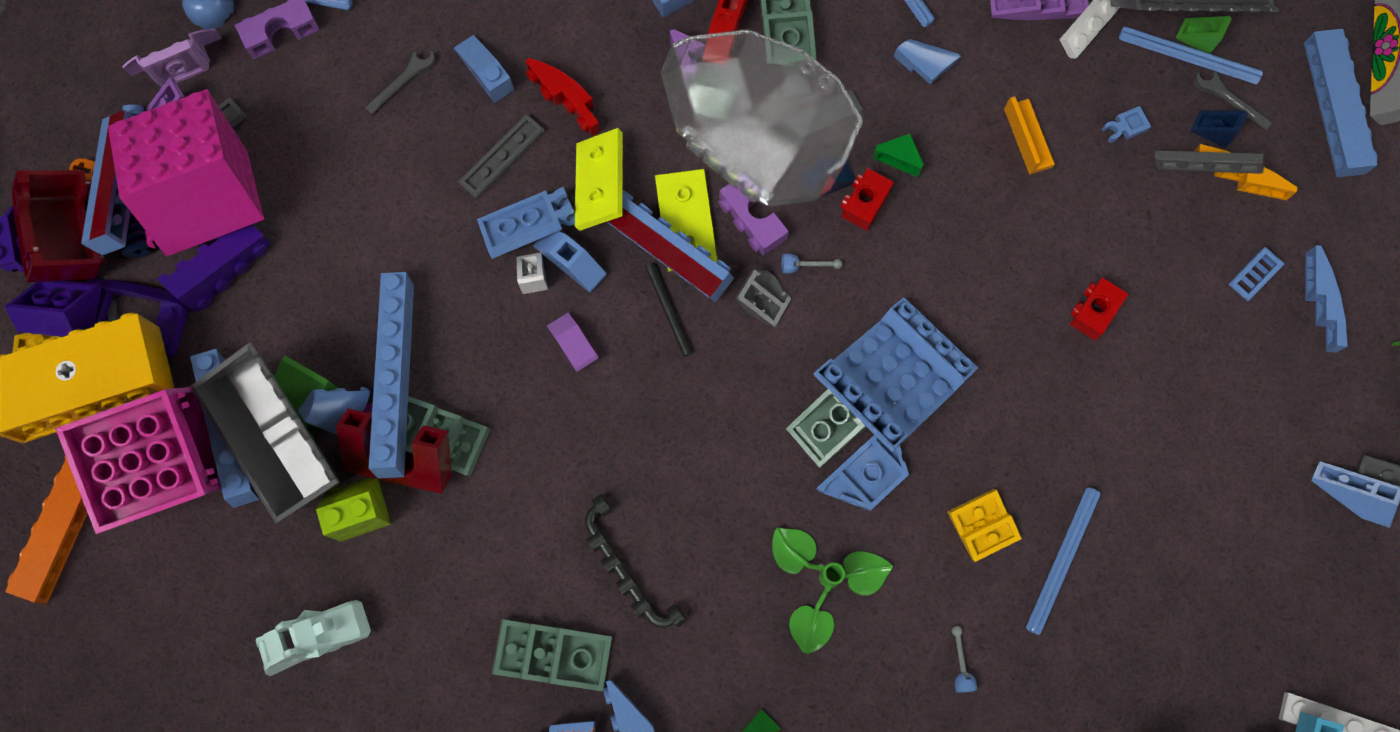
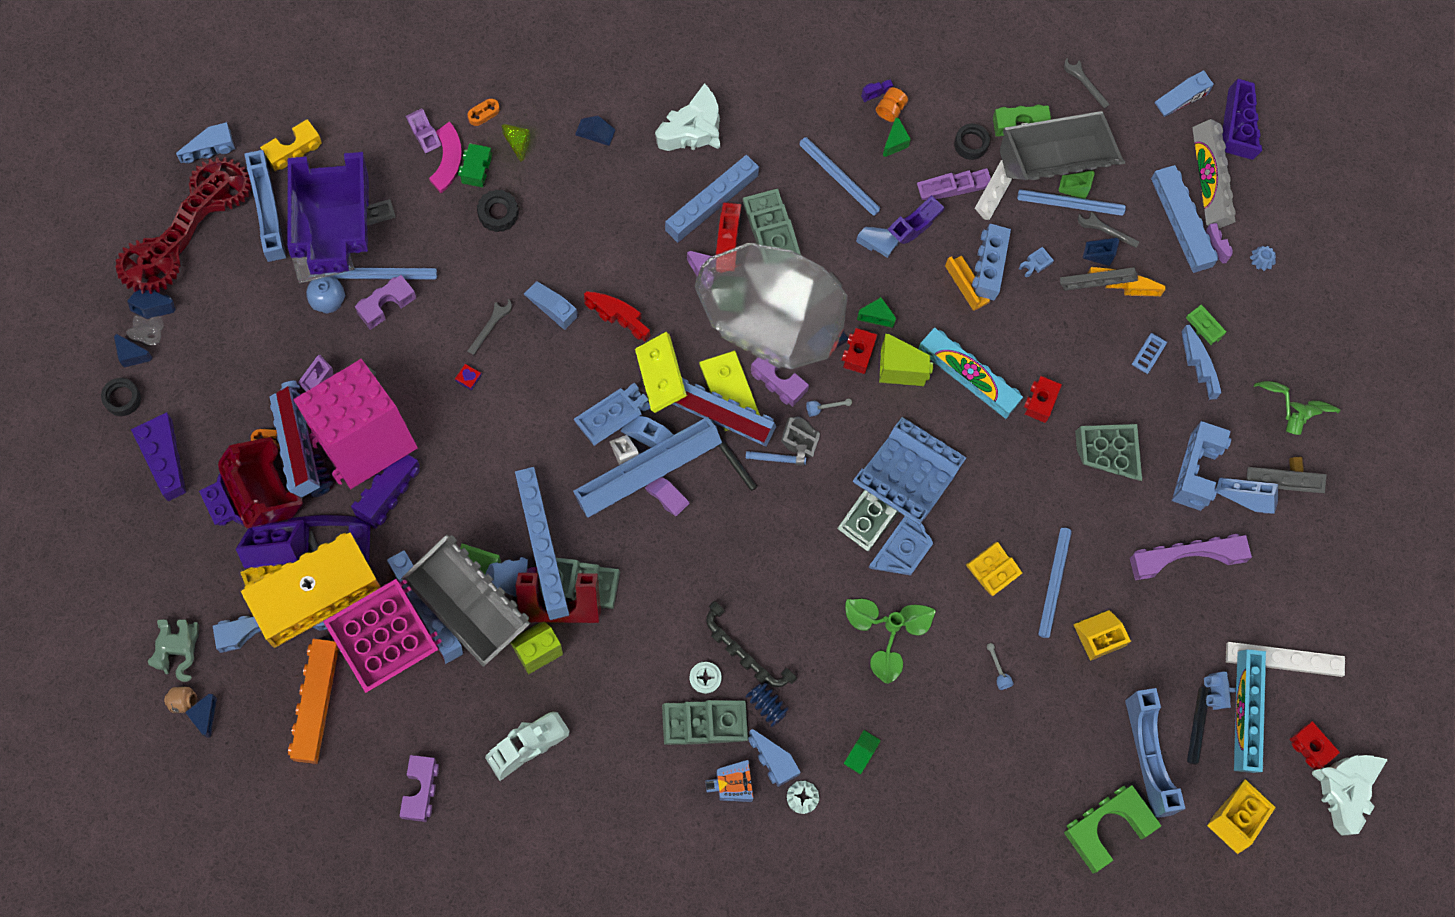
camera: 20 degrees left, 5 degrees down
(173, 645) = (417, 806): none -> medium lavender arch
(177, 61) = (314, 345): lavender piece -> none
(358, 140) = (468, 377): none -> tile
(501, 156) = (580, 369): dark grey tile -> none
(553, 300) = (647, 467): none -> medium blue brick
(560, 583) = (712, 671): none -> light aqua gear
(639, 648) = (768, 703): none -> dark blue piece
(756, 327) = (799, 459): none -> medium blue piece
(921, 226) = (903, 363): none -> lime slope
(973, 48) = (912, 226): none -> dark purple arch
(1008, 255) = (971, 373): none -> medium azure brick
(1084, 85) = (998, 237): none -> medium blue brick
(1114, 647) = (1102, 634): none -> yellow slope
(1178, 394) = (1110, 449): none -> sand green wedge
(1306, 408) = (1191, 489): none -> medium blue plate
(1312, 565) = (1229, 551): none -> medium lavender arch
(1344, 250) = (1206, 325): none -> bright green panel
(1385, 148) = (1222, 247): none -> medium lavender slope

